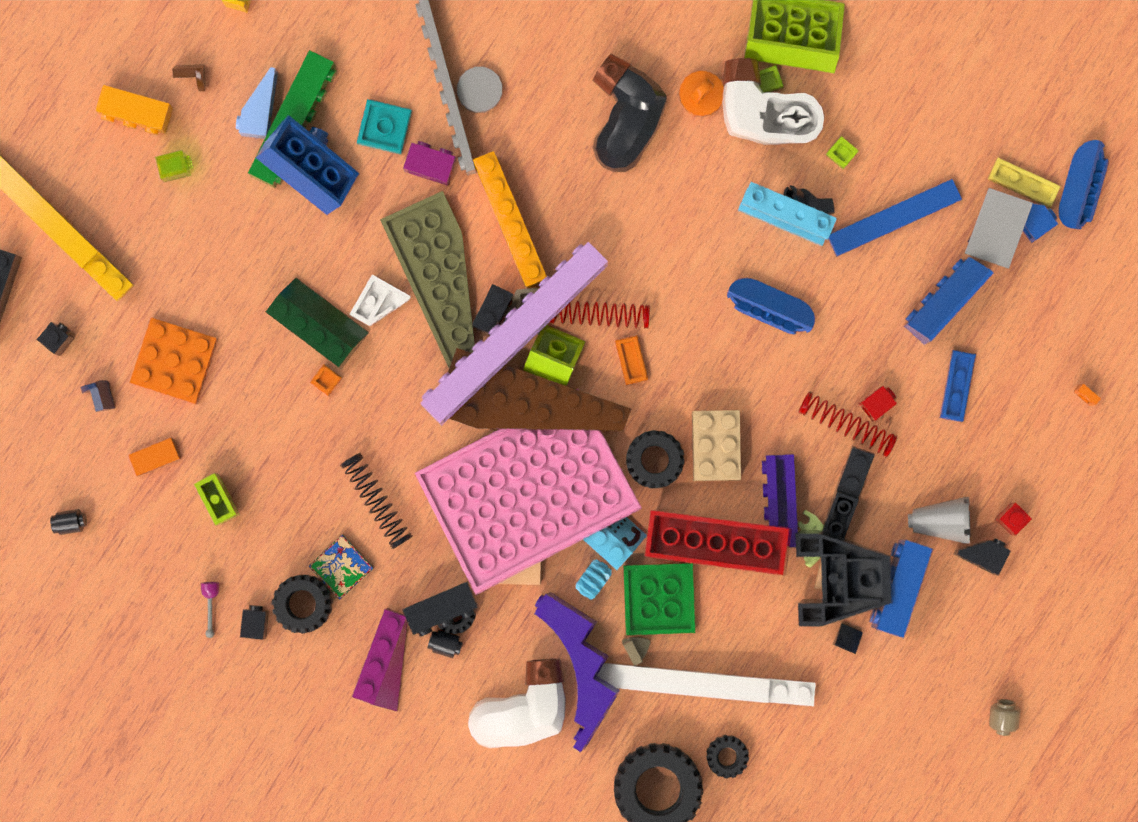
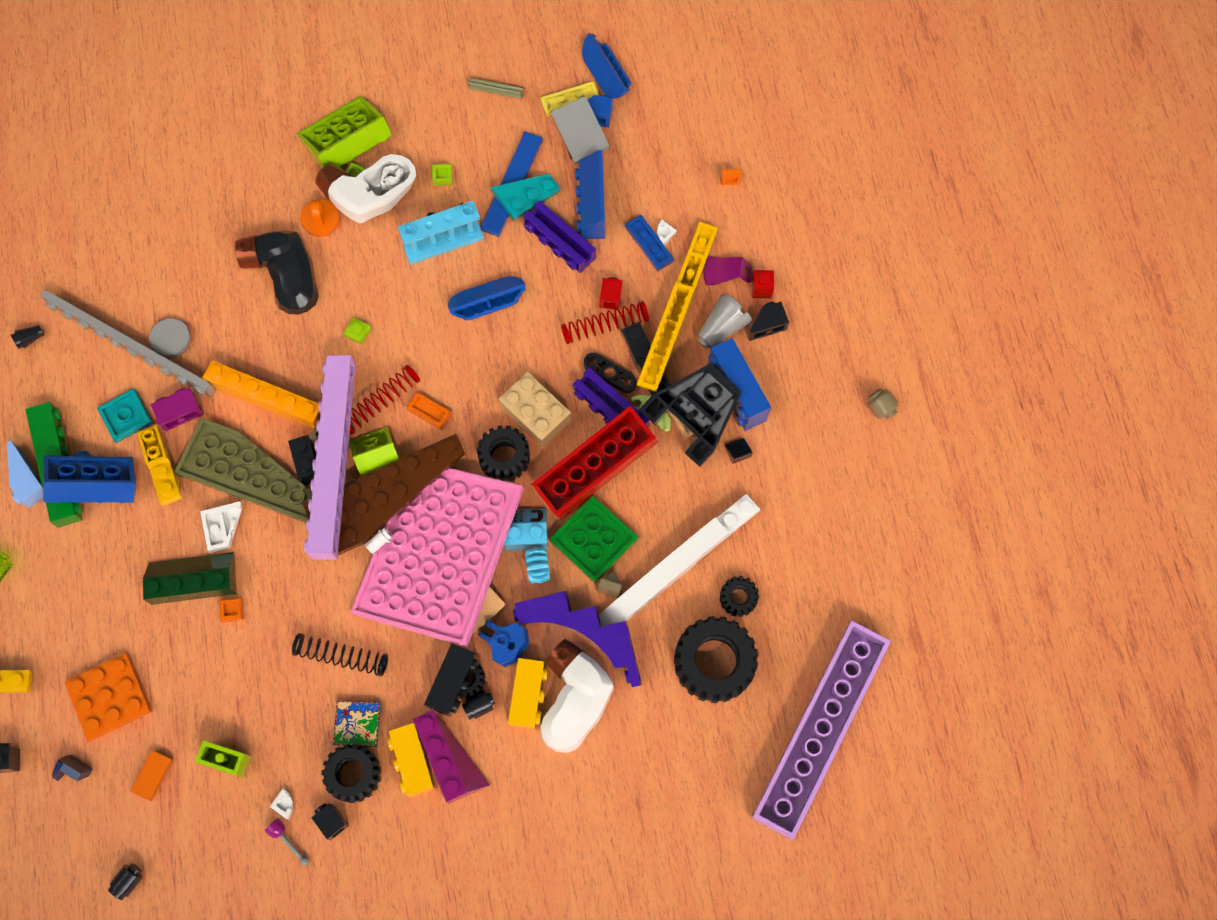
camera: 45 degrees left, 15 degrees down
(232, 575) = (283, 804): none -> white tile
(355, 636) = (410, 760): none -> yellow brick
(374, 202) = (160, 465): none -> yellow slope
(489, 437) = (378, 540): none -> white pin
(490, 672) = (527, 694): none -> yellow brick
(511, 613) = (504, 641): none -> blue hinge
(638, 231) = (357, 331): none -> lime plate
(818, 486) = (625, 375): none -> black beam
(885, 309) = (559, 237): none -> dark purple brick
(895, 242) = (522, 195): none -> teal wing
(921, 471) = (677, 307): none -> yellow slope
(969, 109) = (495, 87): none -> olive axle
(980, 389) = (665, 232): none -> white tile
(996, 474) = (725, 269): none -> magenta piece

